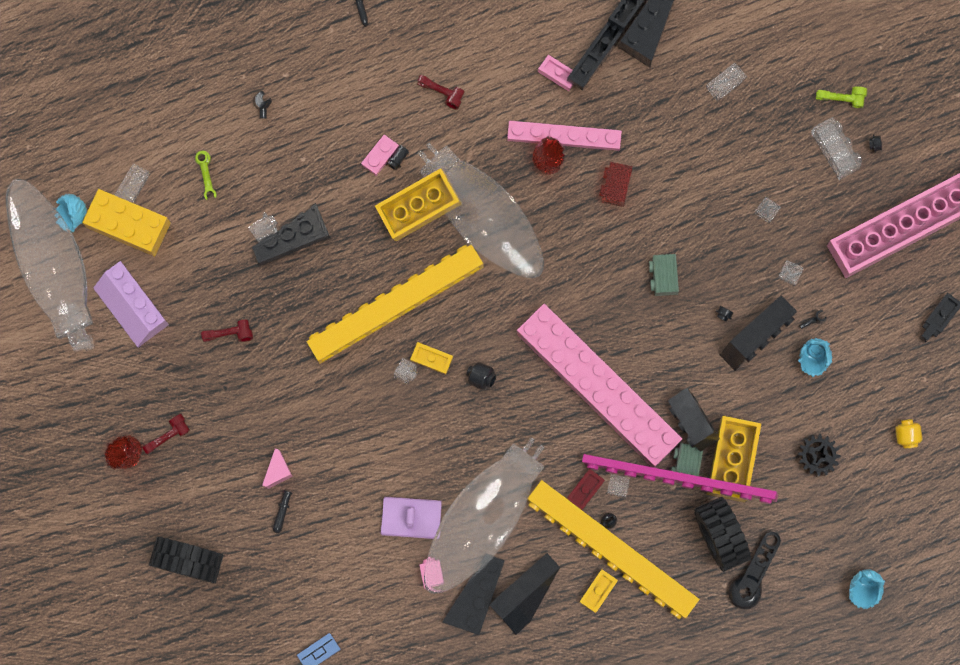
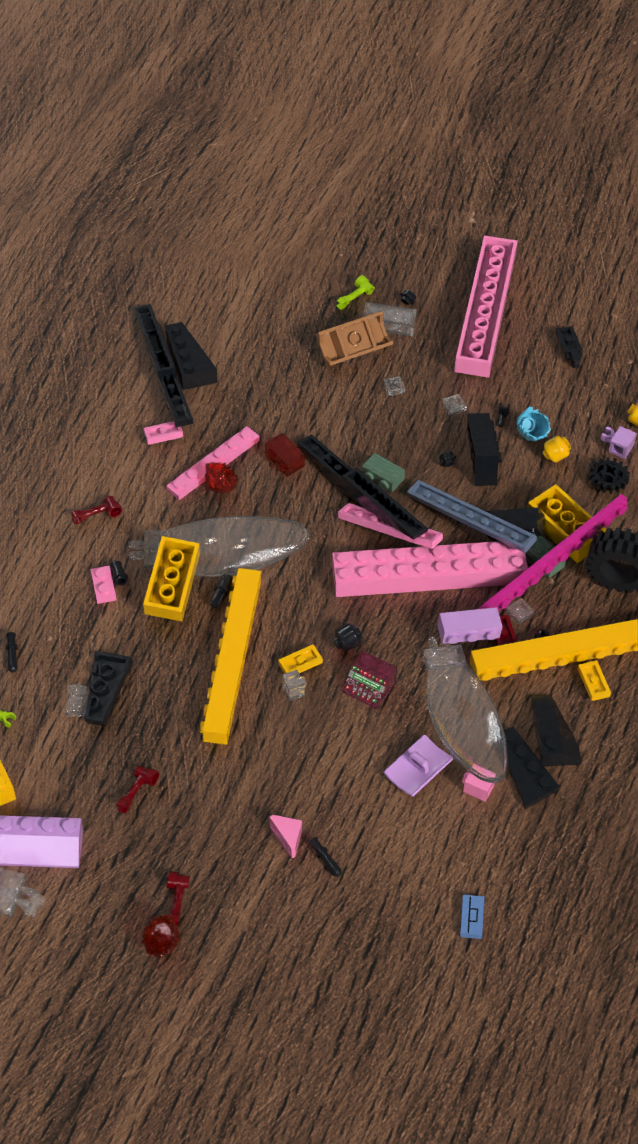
camera: 55 degrees left, 25 degrees down
(186, 559) = (304, 946): black tyre -> none
(259, 151) = (11, 647): none -> black piece
(445, 246) = (221, 590): none -> black axle
(456, 423) = (370, 679): none -> clear pink slope
(561, 462) = (469, 625): none -> lavender brick
(609, 326) = (365, 518): none -> bright pink plate
(627, 274) = (361, 488): none -> black slope
(671, 382) = (472, 516): none -> sand blue plate
(726, 81) = (275, 347): clear plate -> none
(782, 141) = (353, 339): none -> medium nougat piece
(808, 393) = (556, 449): none -> yellow head
(865, 438) = (620, 442): none -> lavender brick

